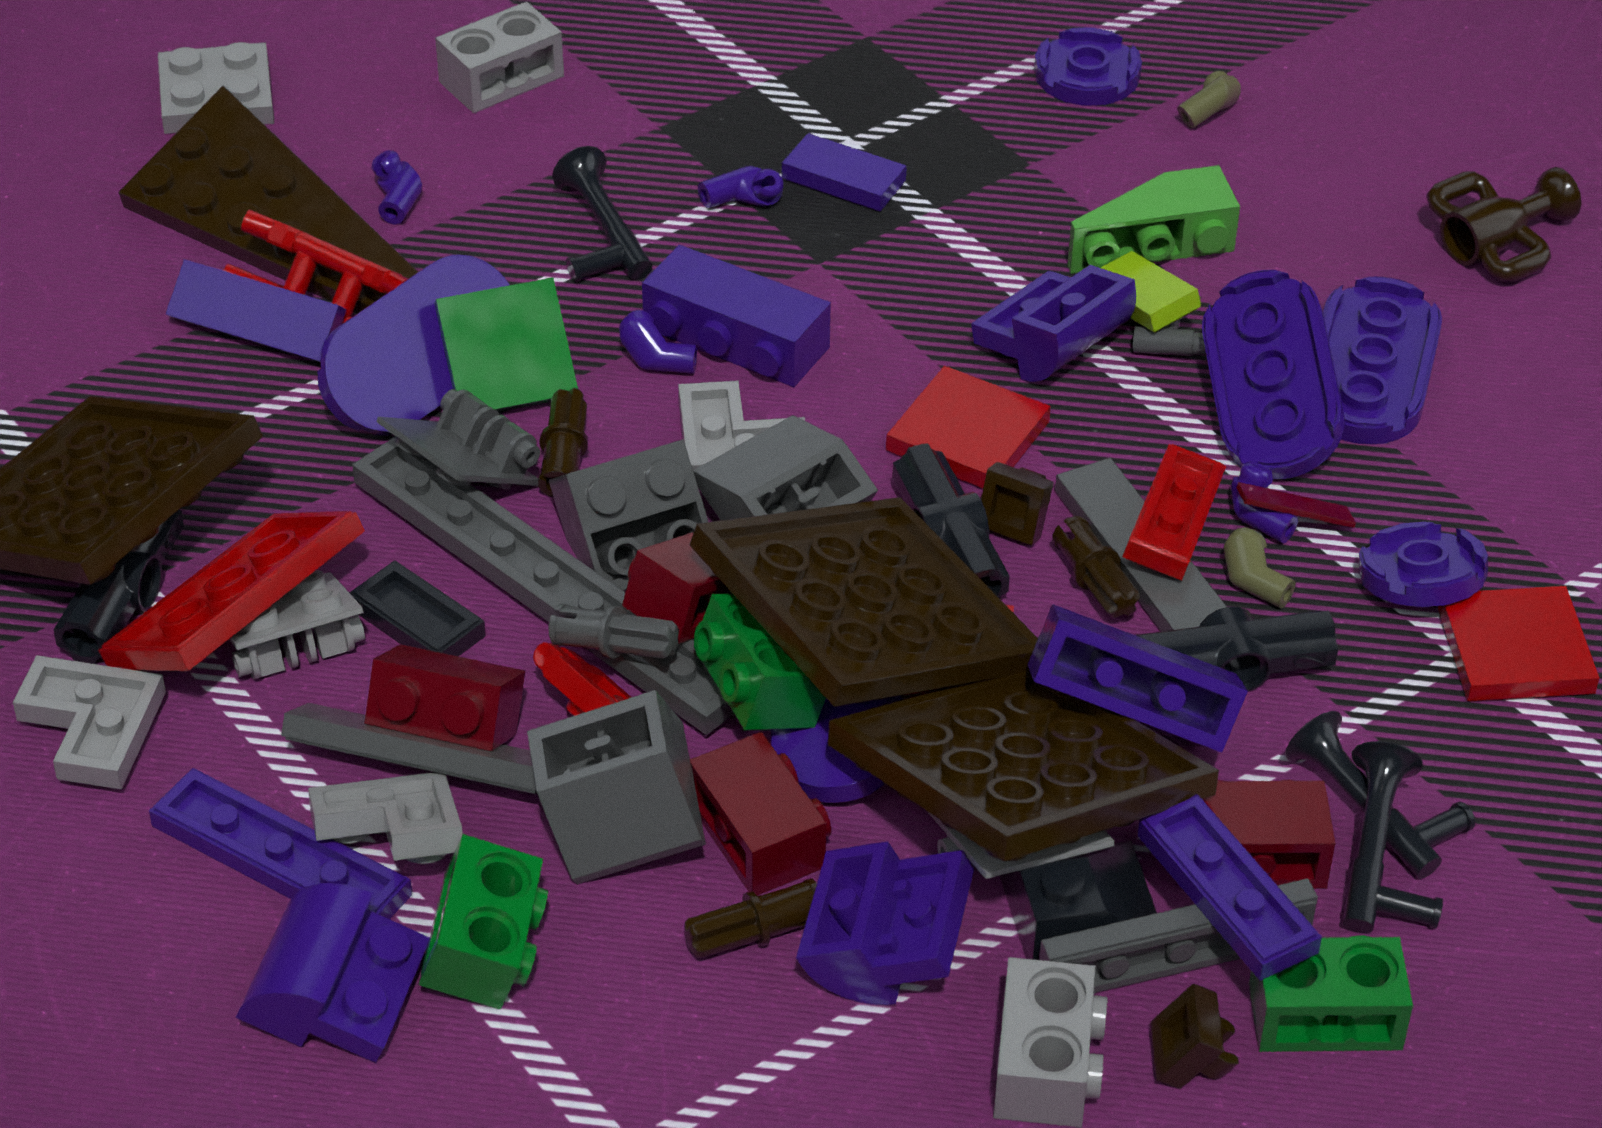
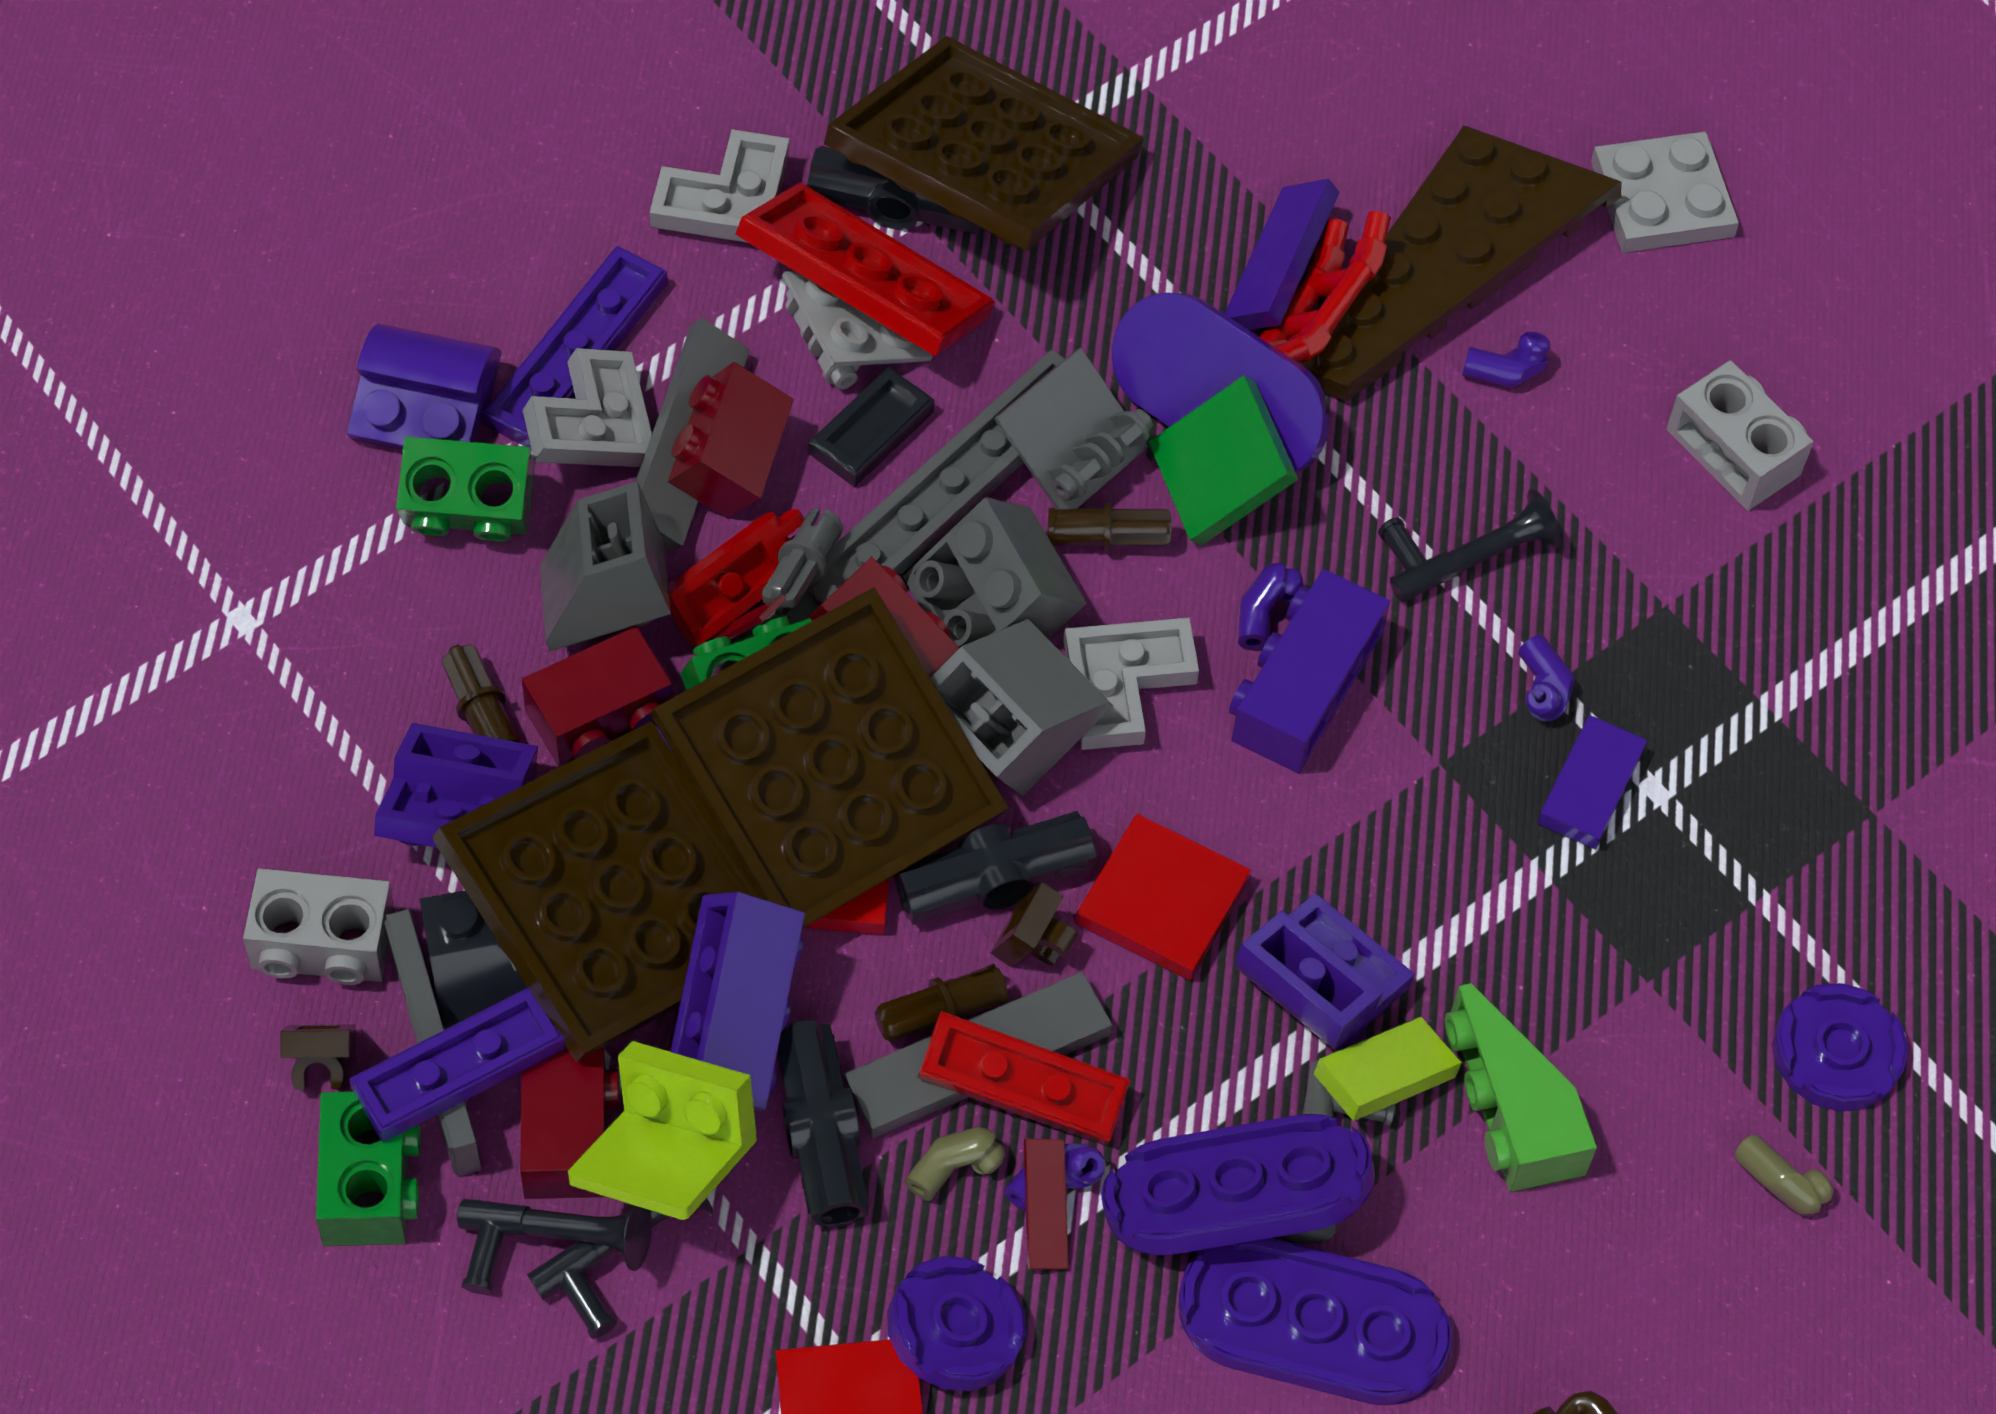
camera: 85 degrees right, 15 degrees up
(687, 669) = (750, 619): none -> dark red window
(1300, 712) = (676, 1136): none -> lime bracket

